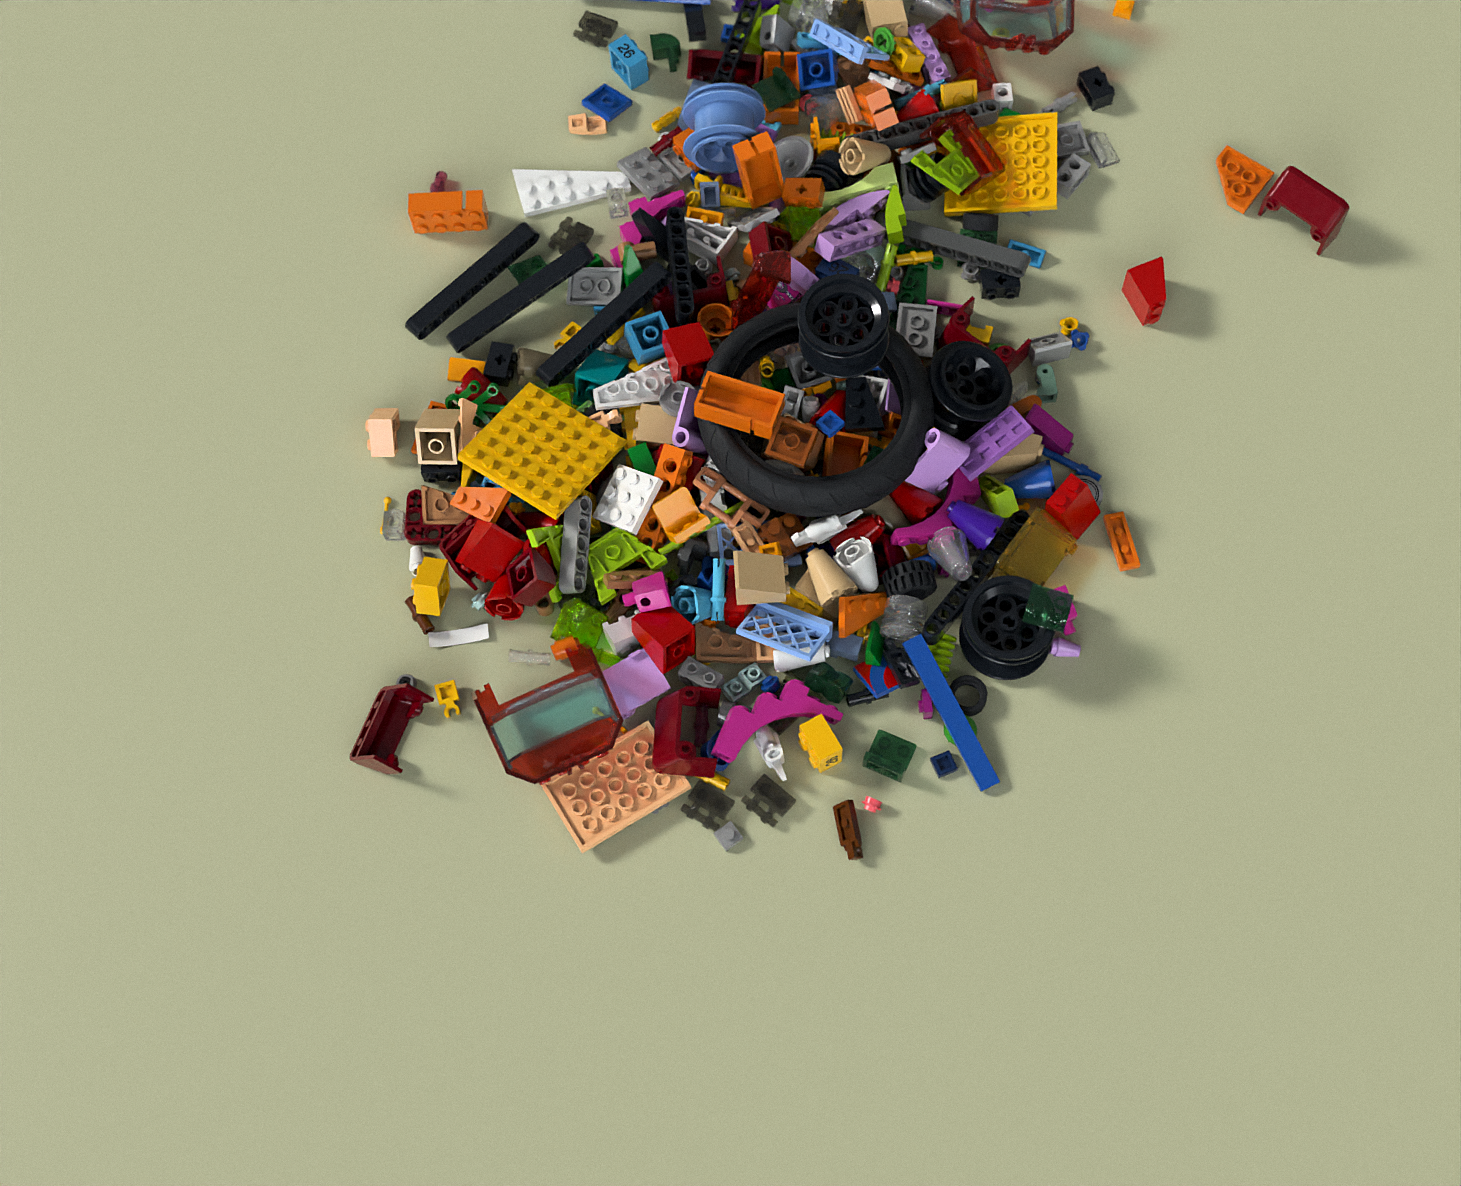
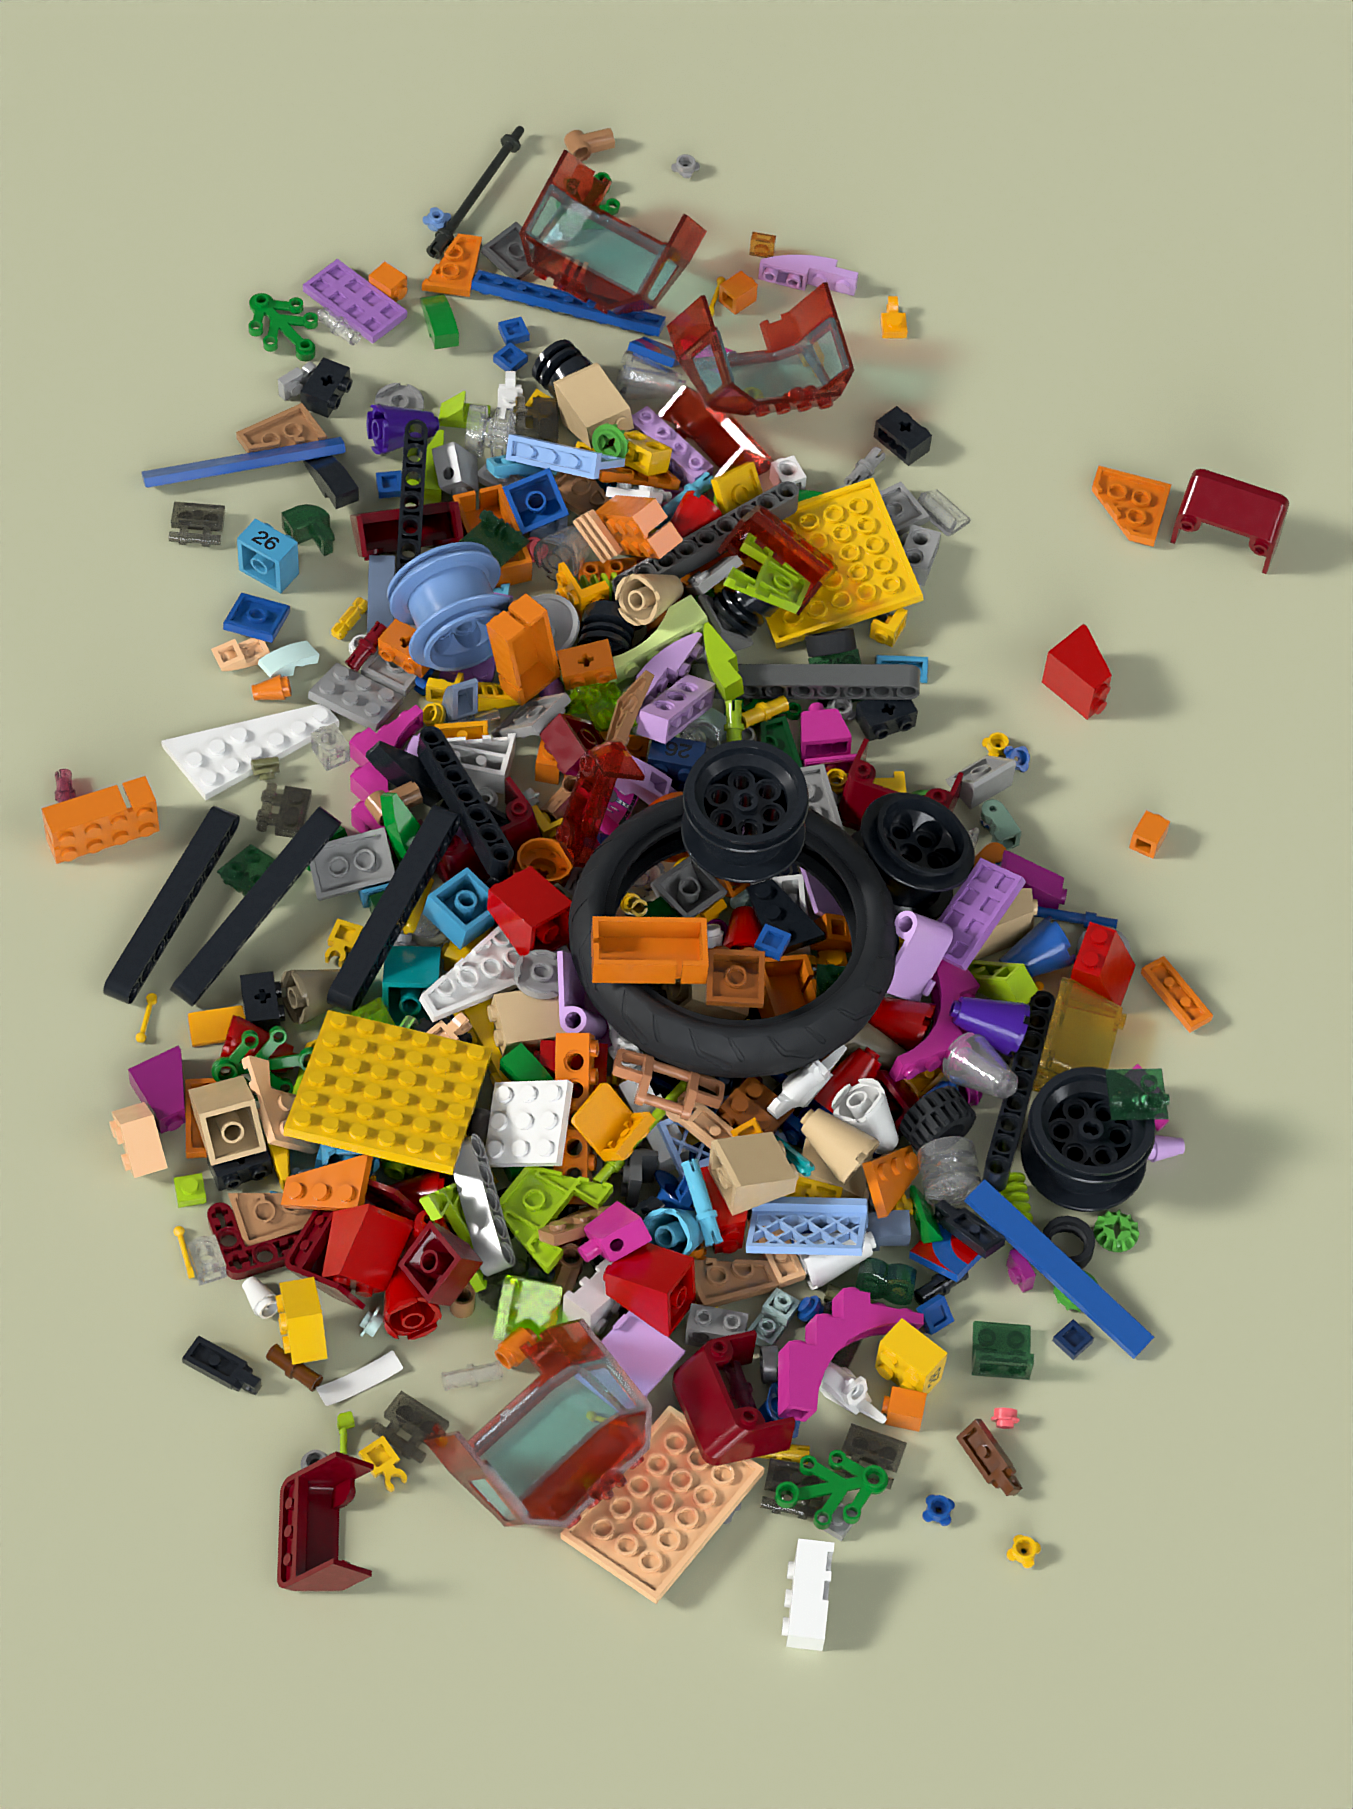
camera: 30 degrees left, 10 degrees down
(374, 599) = (221, 1366): none -> black hinge
(405, 475) = (190, 1190): none -> lime plate
(413, 399) = (161, 1087): none -> magenta slope
(435, 340) = (151, 999): none -> yellow hinge
(435, 661) = (344, 1421): none -> lime hand
(480, 674) = (413, 1418): none -> clear smoke plate
(569, 205) = (265, 767): none -> olive plate
(597, 153) = (272, 689): none -> orange cone
(610, 136) = (286, 658): none -> light aqua slope
(683, 883) = (809, 1595): none -> white wedge
(732, 815) = (835, 1486): none -> green plant
(794, 576) = (801, 1163): none -> teal axle
(799, 847) = (941, 1502): none -> blue plate
(804, 774) = (904, 1408): none -> orange brick
(845, 895) = (1027, 1543): none -> yellow plate
(853, 715) = (936, 1314): none -> blue plate
(943, 316) = (839, 776): none -> yellow plate
(948, 284) = (823, 733): none -> dark pink torso
(1010, 705) = (1105, 1234): none -> bright green gear
(1028, 224) = (888, 632): none -> yellow bracket
(1150, 420) = (1149, 834): none -> orange brick

